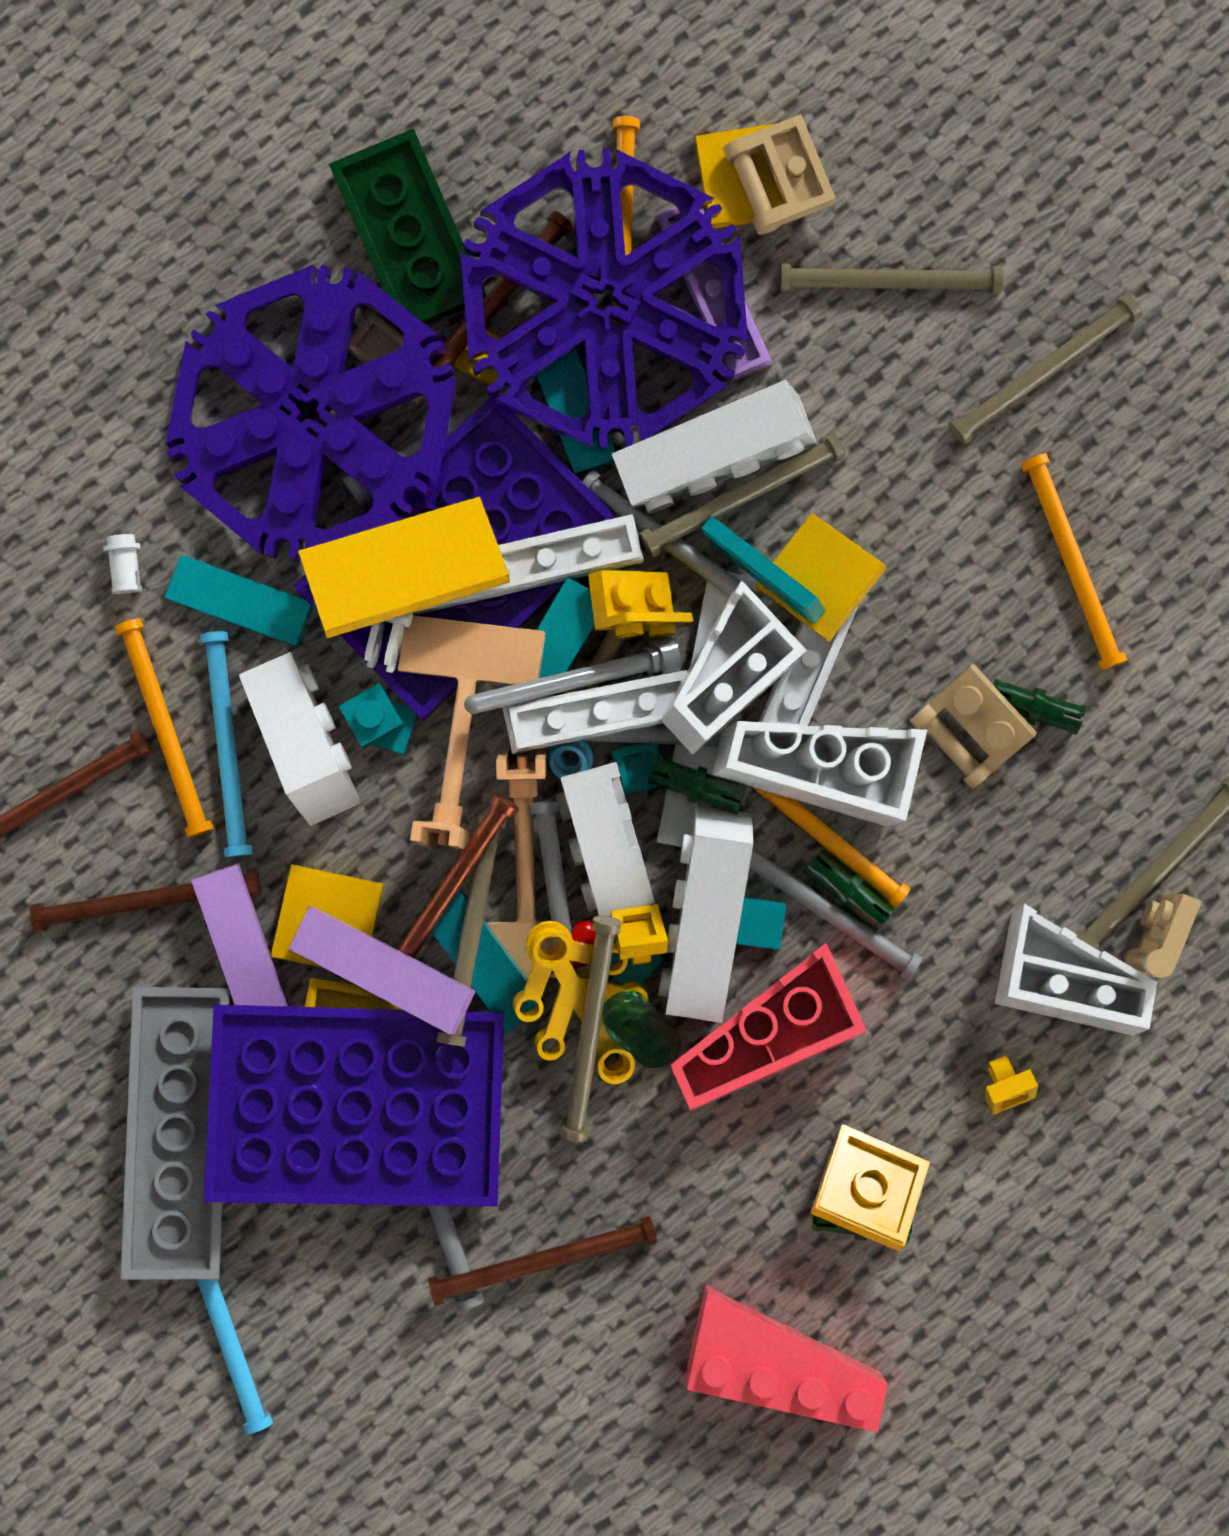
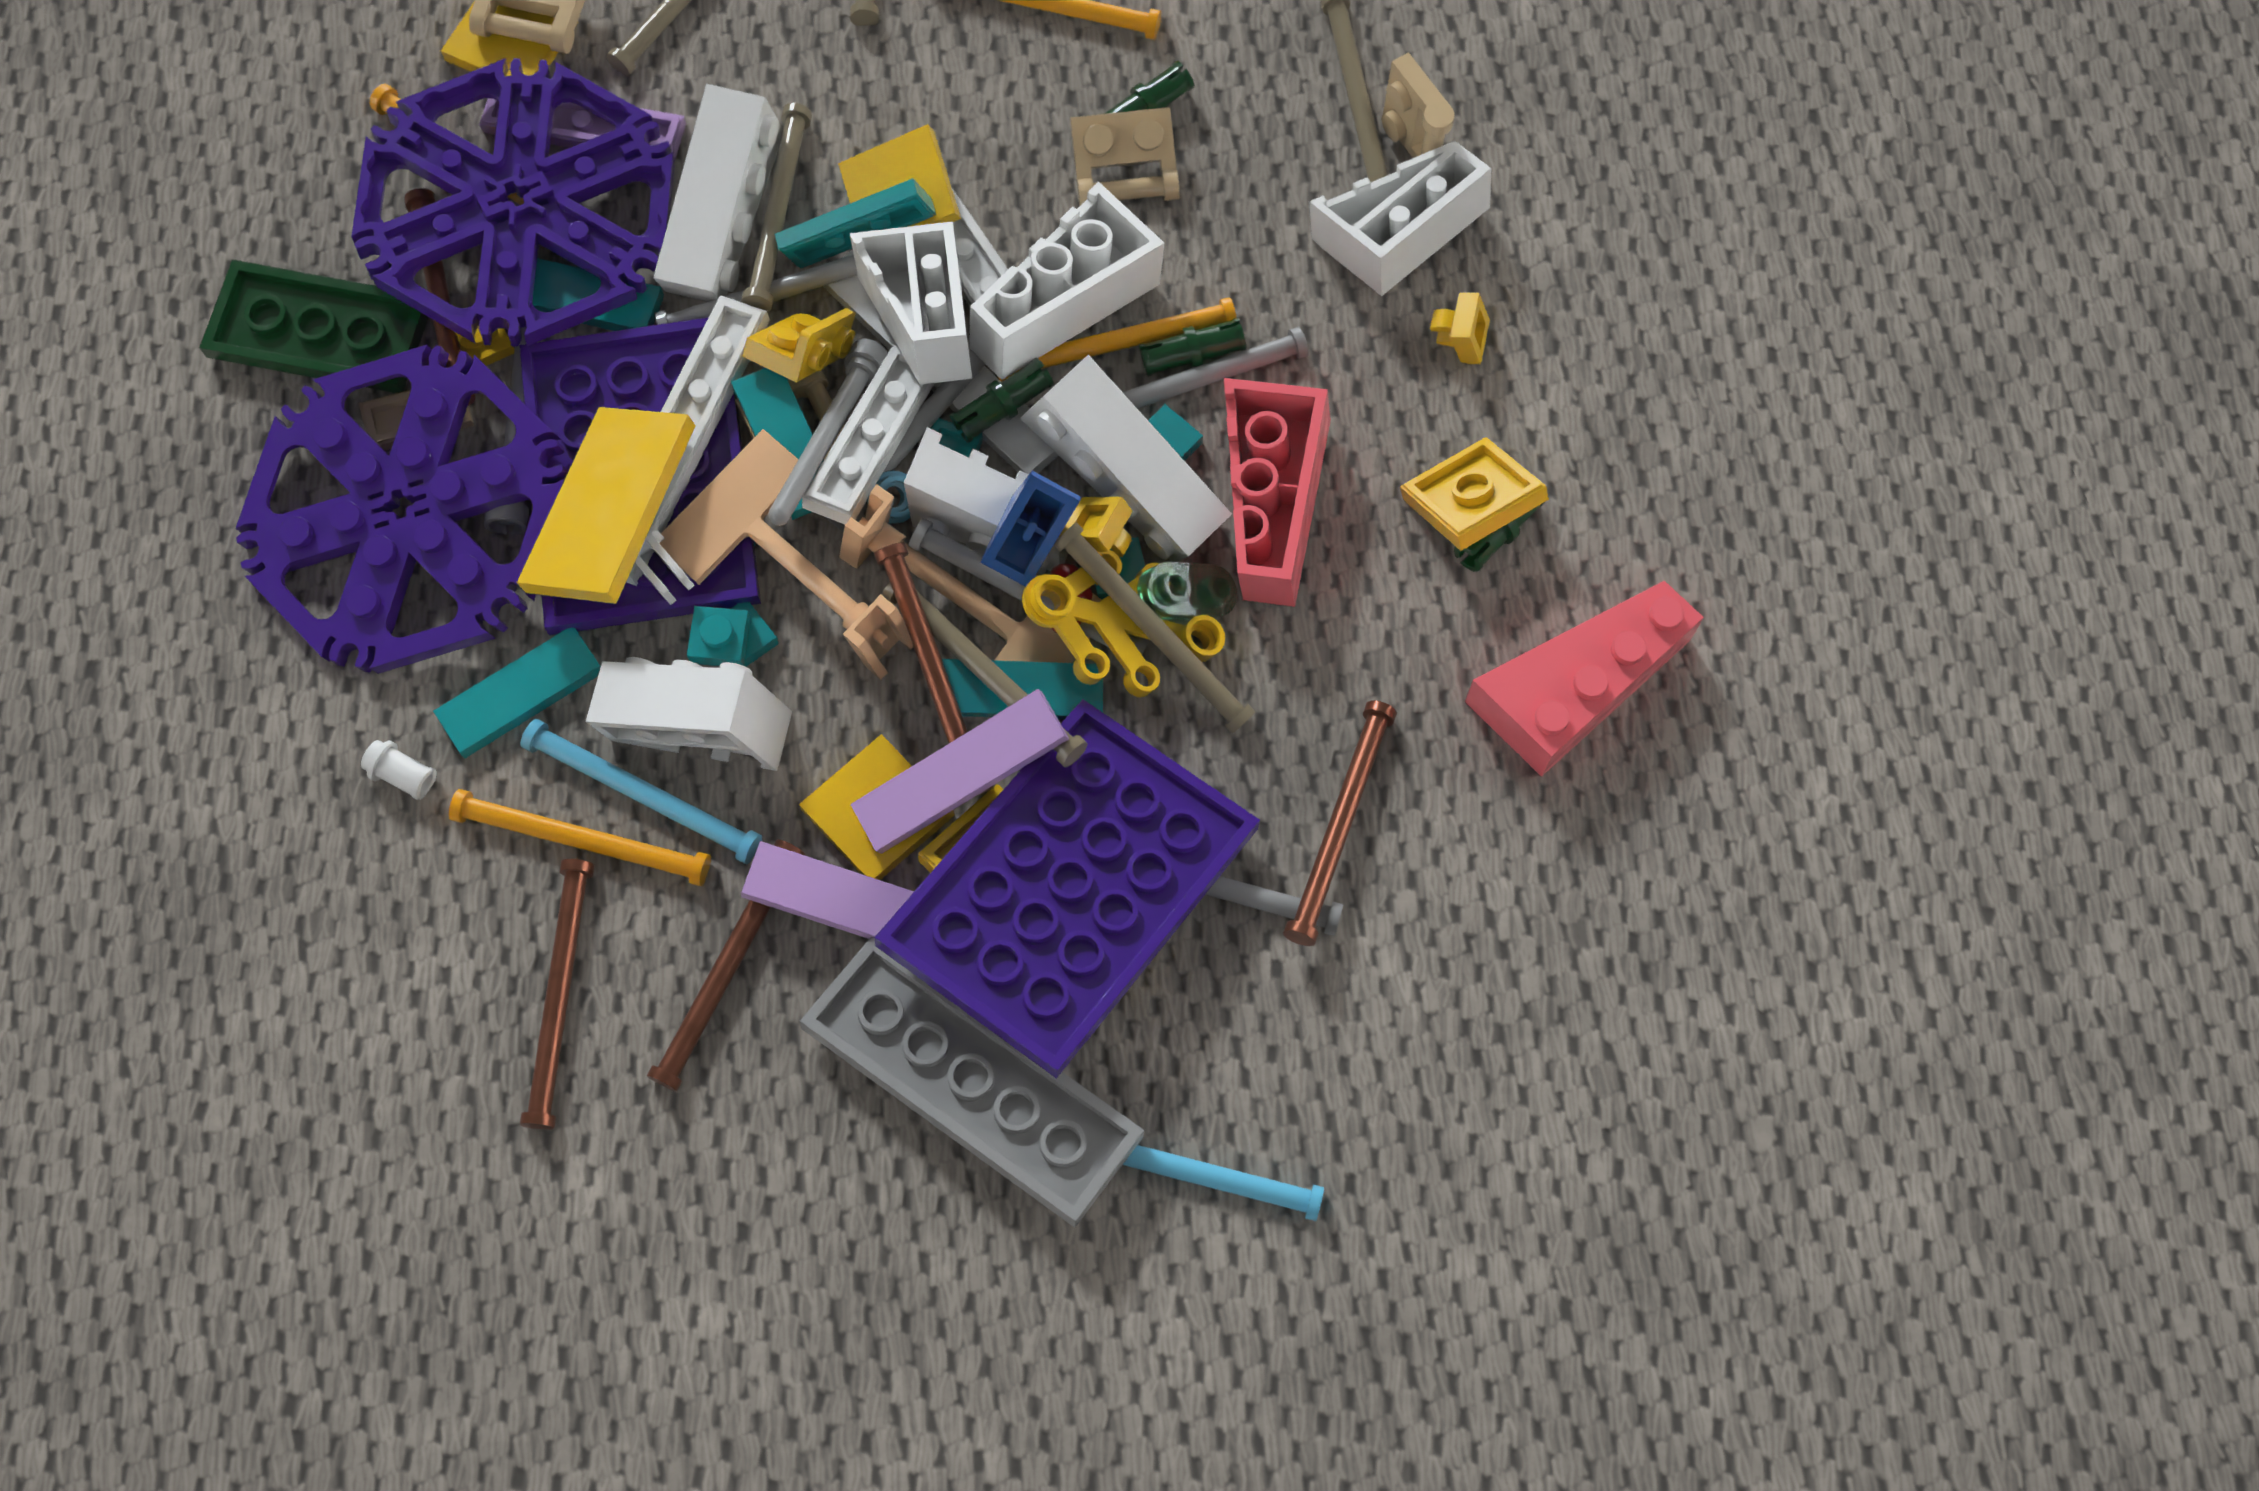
camera: 50 degrees left, 15 degrees down
(589, 892) = (1029, 528): none -> blue slope

